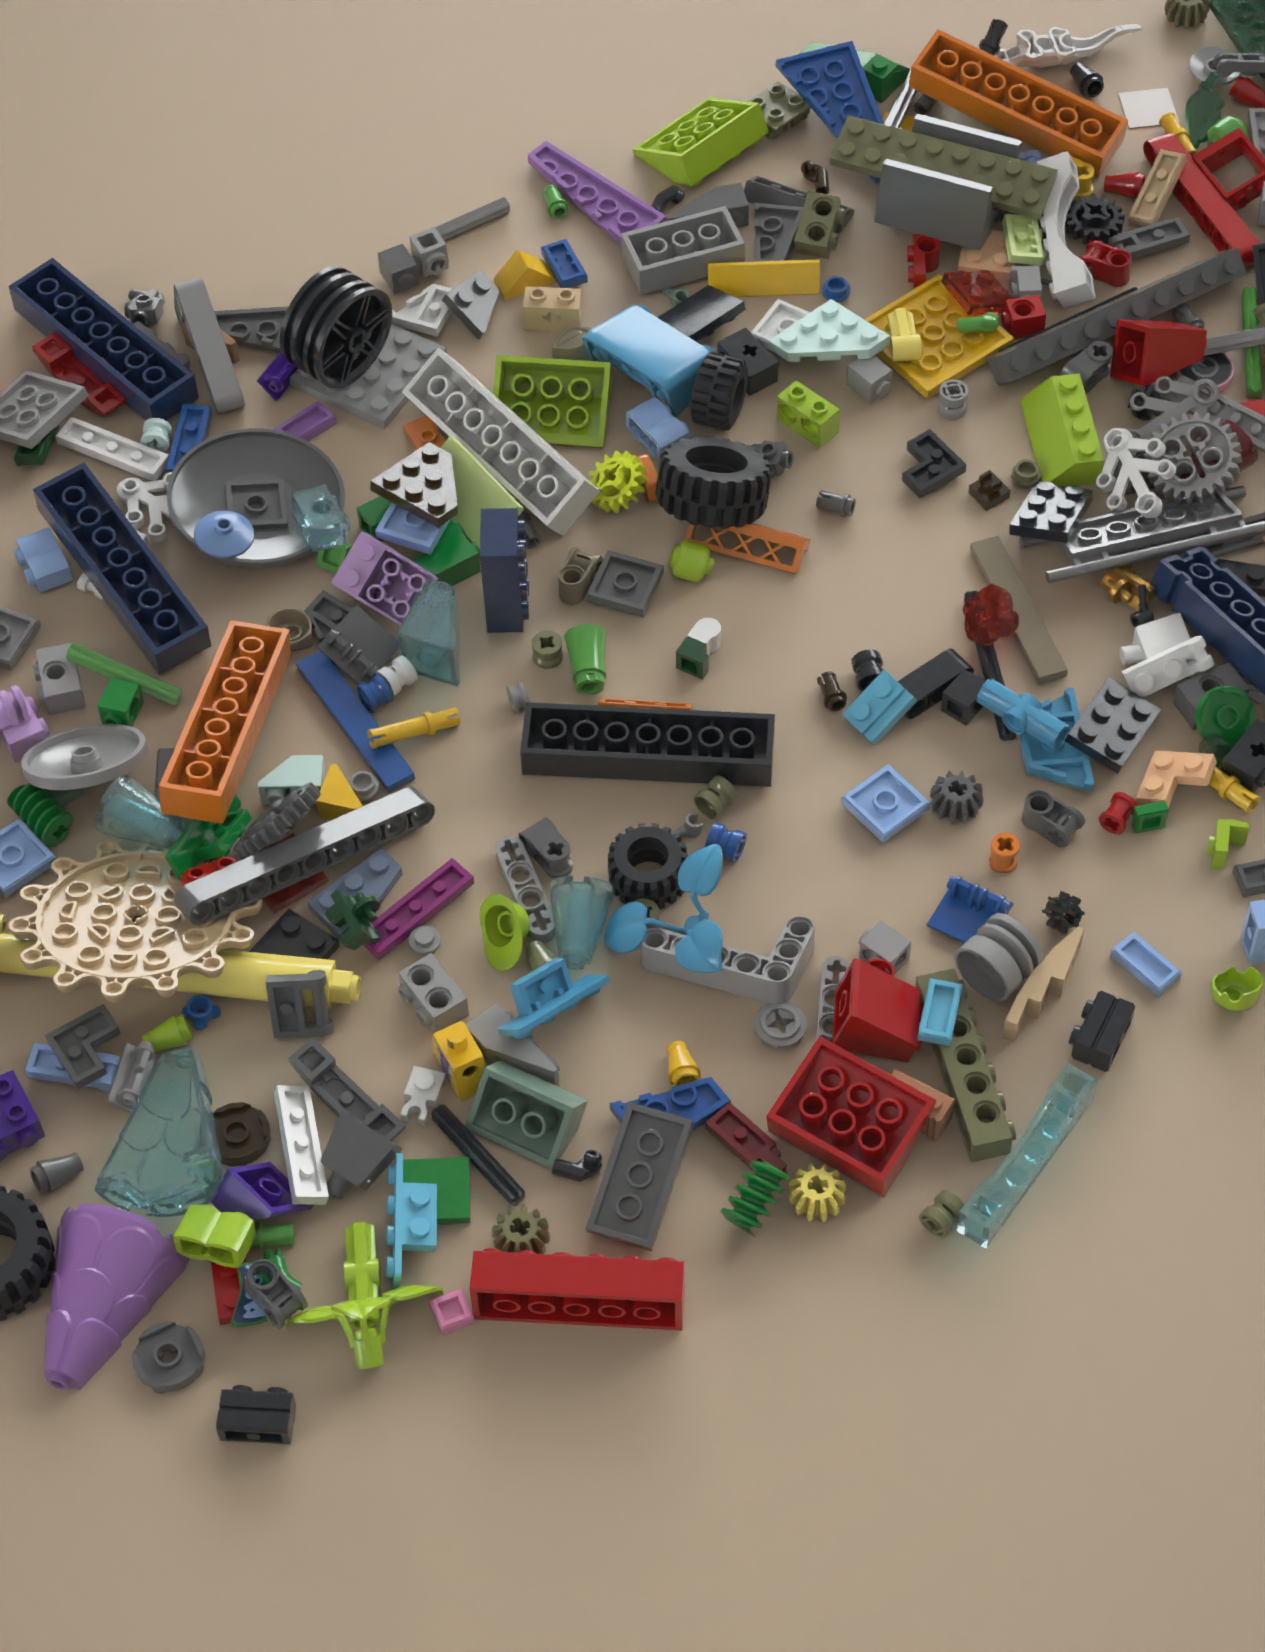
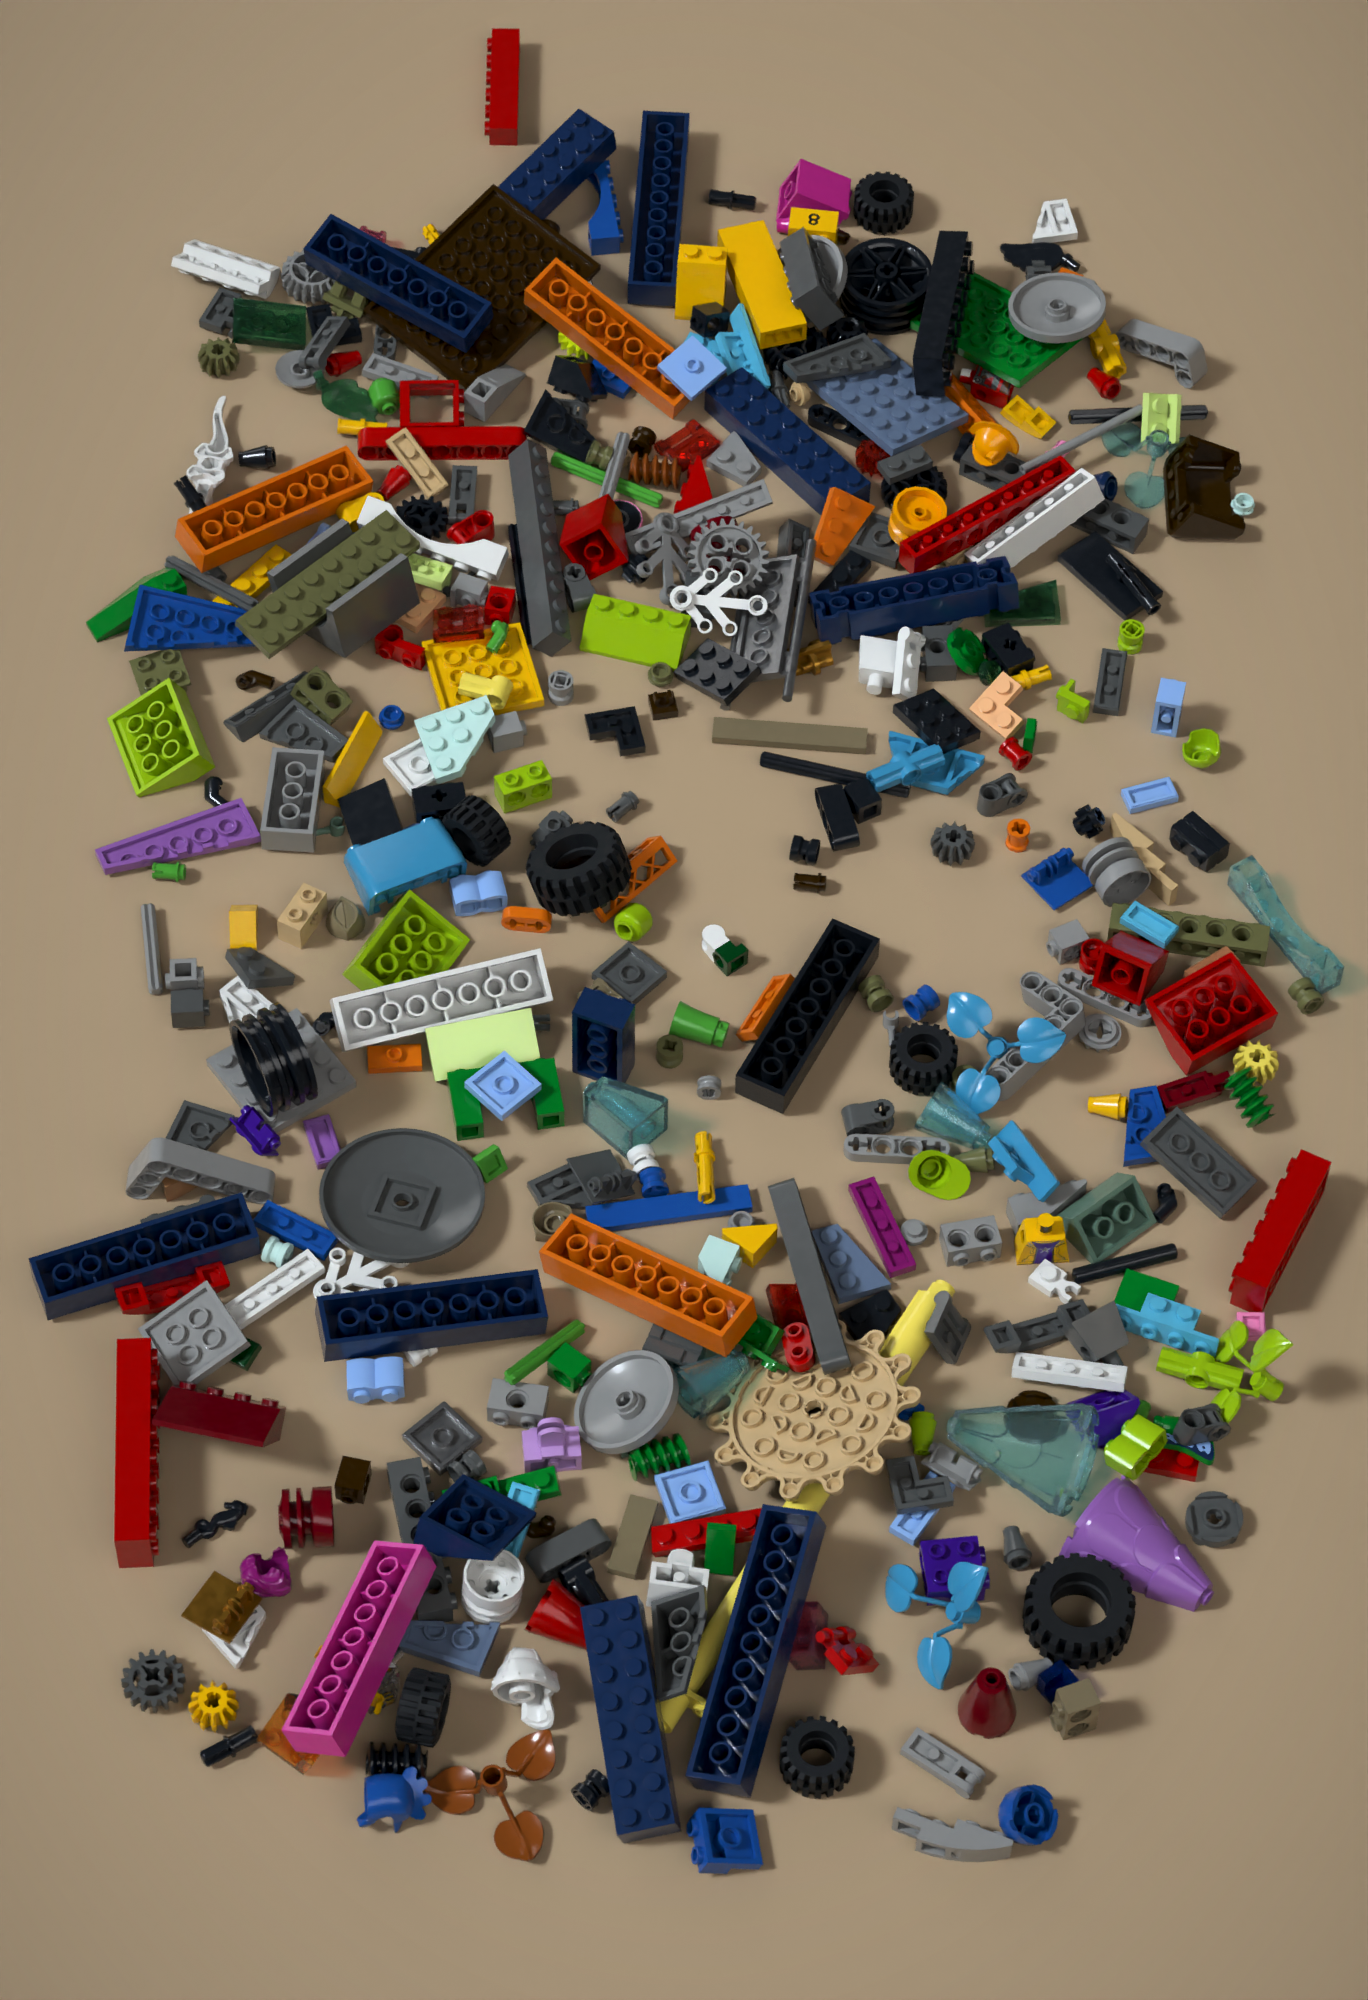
camera: 70 degrees left, 0 degrees up
(144, 307) = (115, 1212): dark grey piece -> none
(224, 534) = (436, 1235): medium blue dish -> none
(256, 1415) = (1290, 1475): black brick -> none
(277, 821) = (771, 1277): dark grey gear -> none
(320, 518) = (464, 1151): clear light blue brick -> none
(358, 914) = (871, 1267): dark green hips -> none
(381, 577) = (547, 1132): lavender slope -> none
(421, 485) = (475, 1064): plate -> none
(531, 1227) = (1210, 1257): olive gear -> none
(564, 264) = (249, 891): blue plate -> none
(618, 481) = (537, 935): neon yellow gear -> none
(727, 195) = (254, 763): dark grey slope -> none
(879, 707) = (846, 856): medium azure plate -> none
(885, 803) = (933, 890): light blue plate -> none
(990, 615) = (802, 750): clear red plate -> none
(1144, 614) = (839, 660): black hand -> none
(1146, 106) = (309, 433): white sticker -> none

